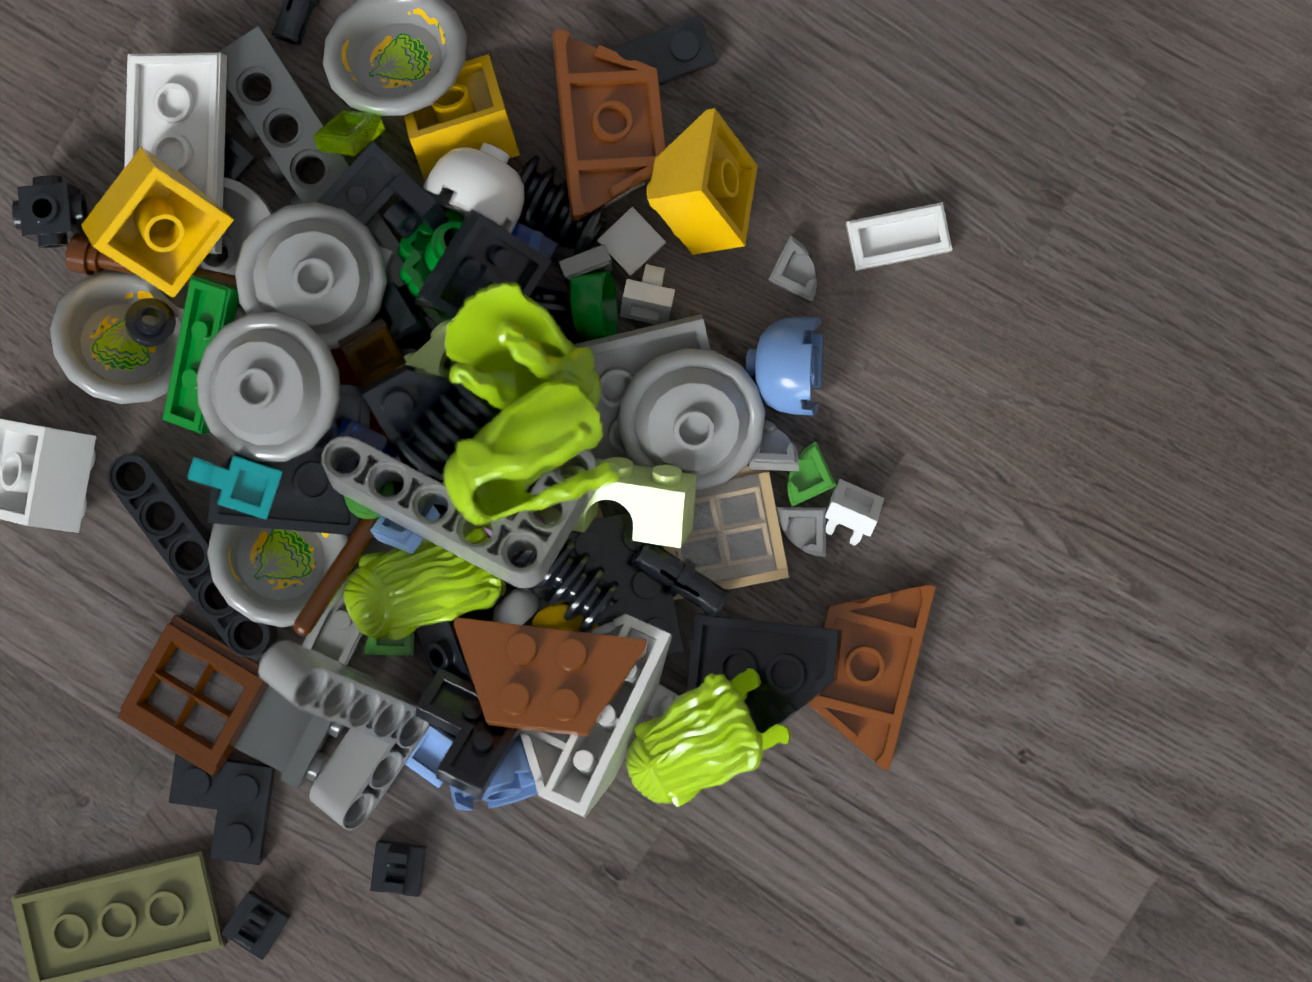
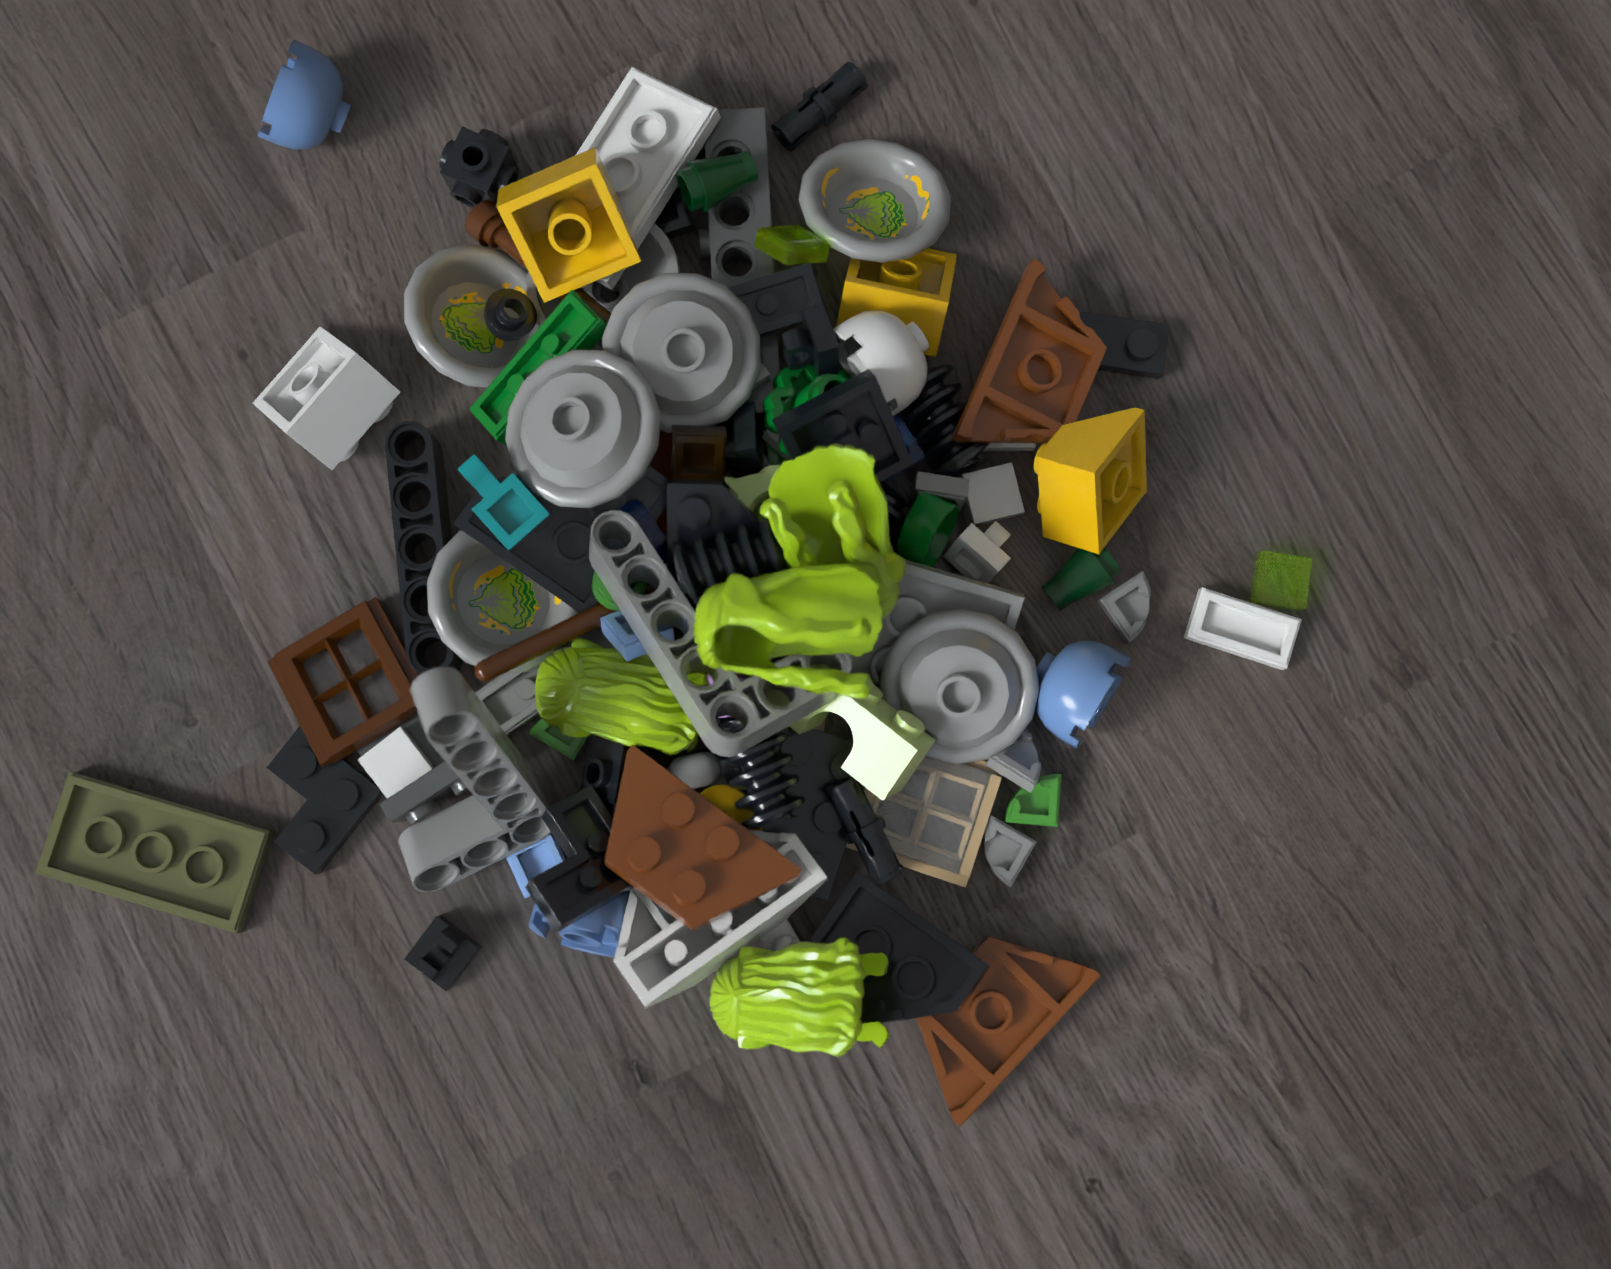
camera: 30 degrees right, 5 degrees down
(253, 114) = (714, 179): none -> dark green cone
(256, 924) = (279, 929): black tile -> none
(272, 739) = (395, 762): none -> white tile
(742, 270) = (1081, 577): none -> dark green cone
(854, 509) = (1062, 857): white tile -> none
(909, 178) = (1281, 580): none -> clear neon green tile

